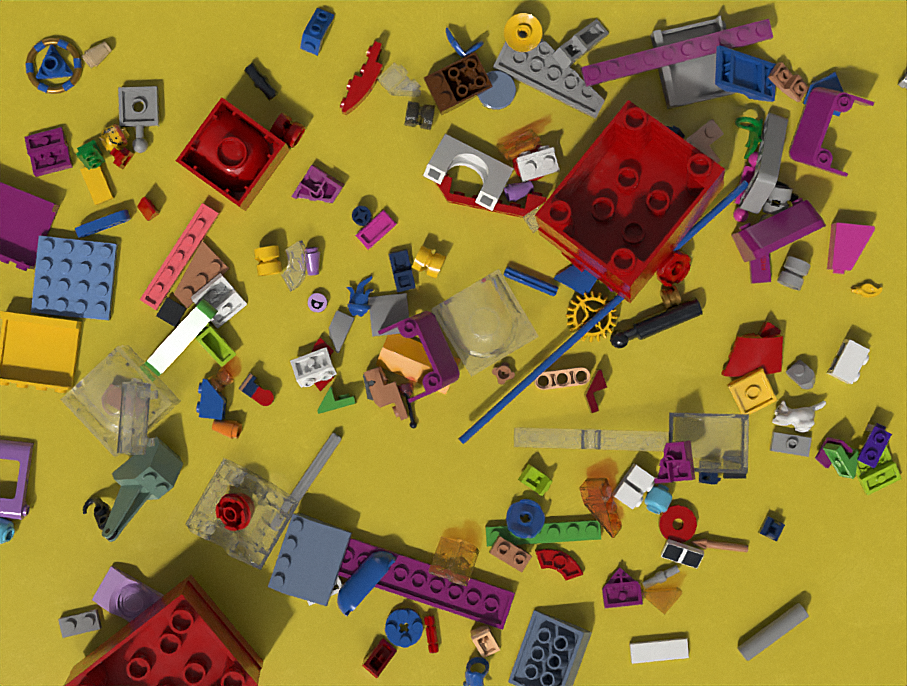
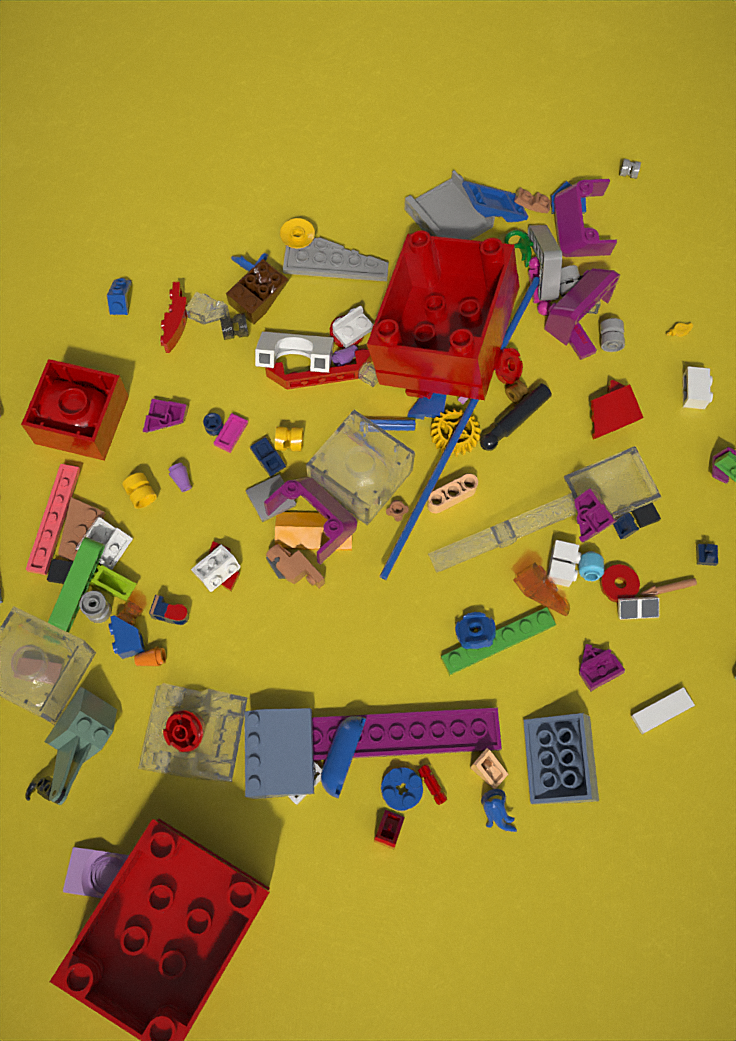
camera: 30 degrees left, 20 degrees down
(80, 623) = (56, 924): light grey plate -> none
(134, 417) = (49, 665): clear brick -> none
(147, 208) = (10, 488): red slope -> none
(192, 362) = (95, 607): none -> light grey wheel
(260, 81) = (83, 350): black pin -> none
(288, 130) = (127, 374): red wheel -> none
(296, 265) = (167, 483): clear tile -> none
(316, 466) = (252, 661): light grey axle -> none
(317, 302) = (199, 512): lavender tile -> none
(329, 402) = (245, 596): bright green slope -> none
(339, 329) = (228, 527): light grey slope -> none
(358, 301) = (238, 498): blue piece -> none
(407, 390) = (311, 556): hinge -> none
(454, 560) = (424, 696): clear yellow brick -> none
(501, 93) = (296, 289): sand blue tile -> none
(510, 553) = (476, 669): nougat plate -> none
(513, 147) = (326, 321): clear orange plate -> none
(535, 480) = (469, 592): lime bracket -> none
(558, 561) = (526, 662): red tile -> none
(580, 44) = (348, 230): light grey slope -> none
(596, 383) = (487, 486): dark red slope -> none
(661, 576) = (629, 638): light grey bar -> none
(662, 597) = (640, 657): clear yellow slope -> none
(676, 53) = (428, 207): magenta plate -> none
(752, 392) = (625, 436): yellow tile -> none
(790, 444) = (684, 475): light grey plate -> none
(800, 418) = (679, 448): white animal -> none
(802, 375) = (663, 413): light grey plate -> none
(847, 245) = (644, 299): dark pink slope -> none

